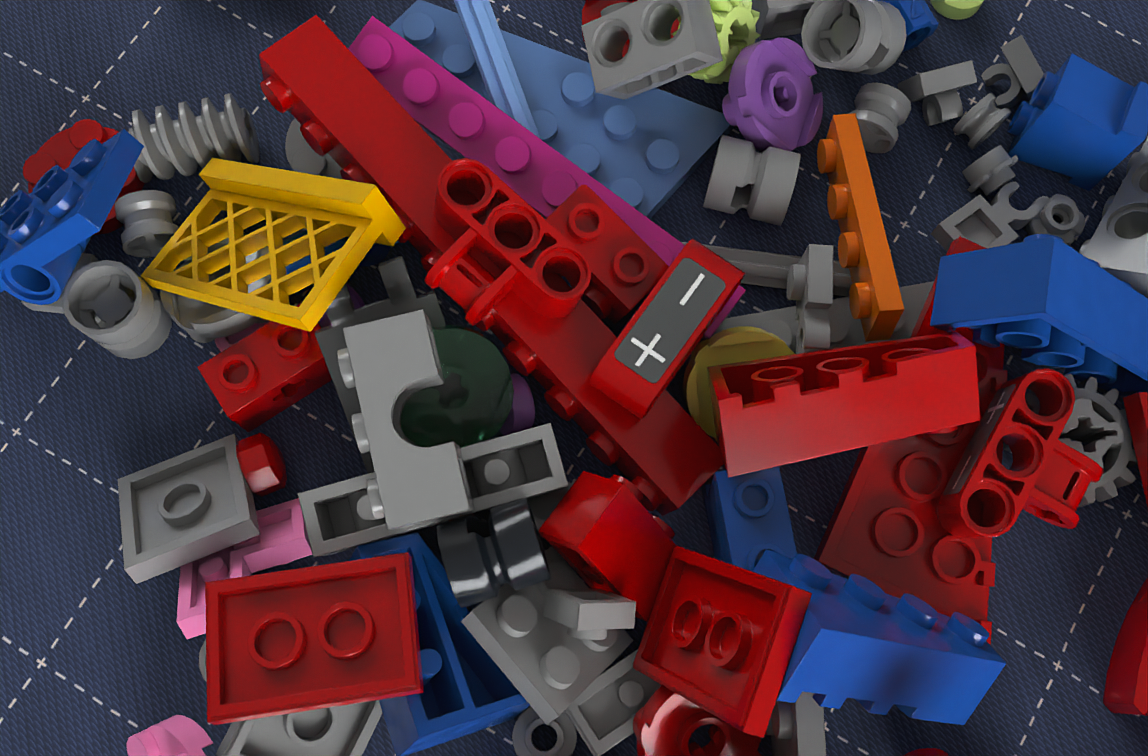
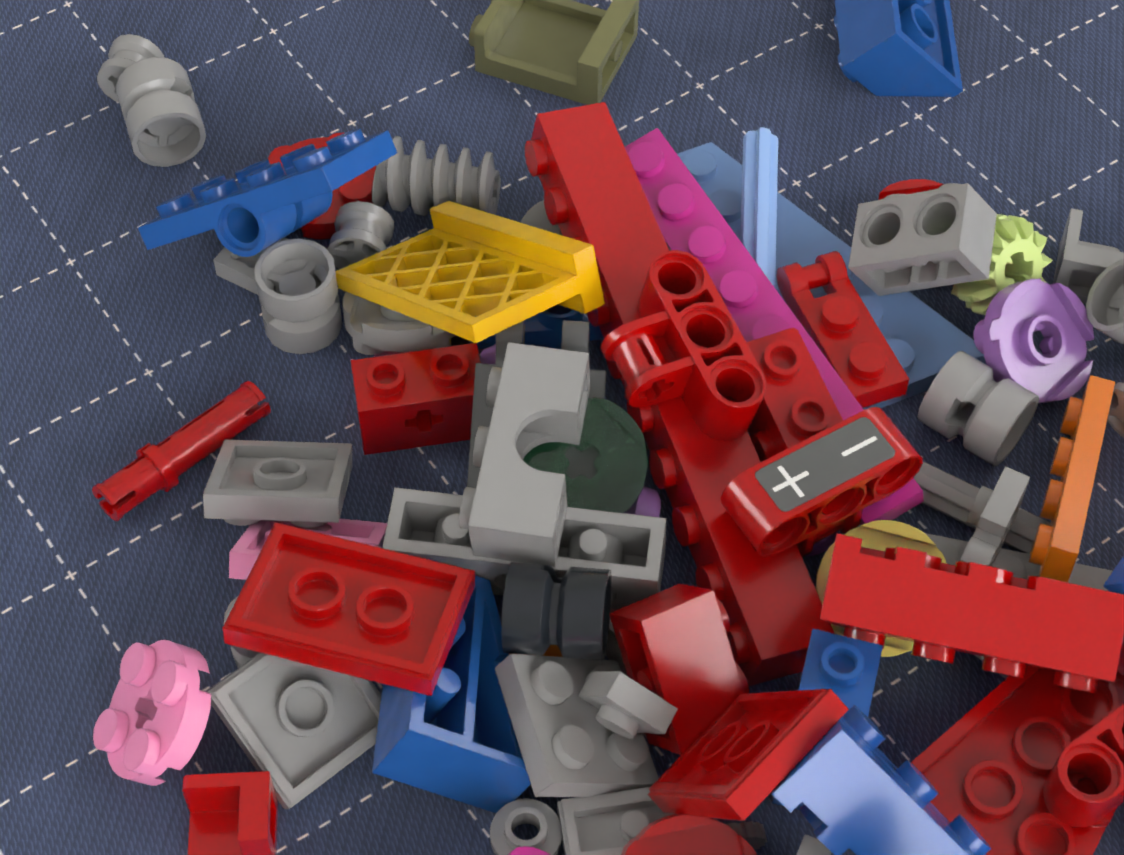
camera: 25 degrees right, 20 degrees down
(82, 507) = (161, 464): none -> red pin
(261, 464) = (366, 477): red tile -> none
(611, 151) = (843, 328): none -> red plate

